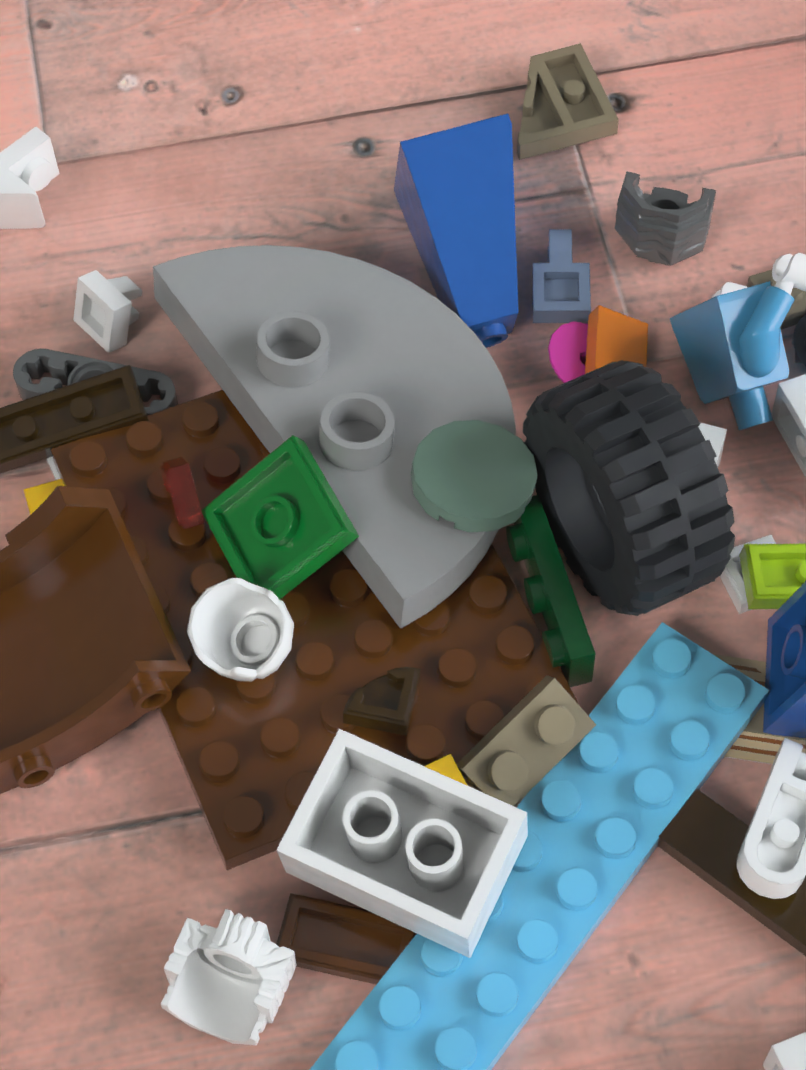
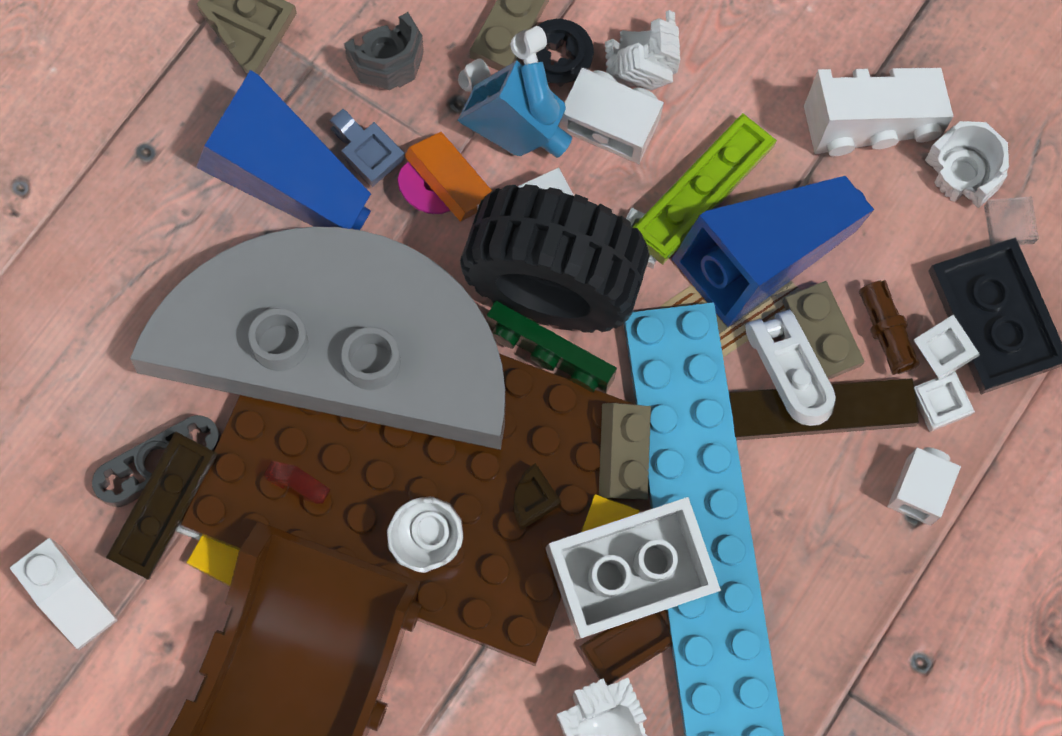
camera: 50 degrees left, 15 degrees up
(106, 308) = (111, 405): white tile -> none
(280, 520) = (377, 451): green tile -> none
(473, 475) = (461, 325): sand green tile -> none

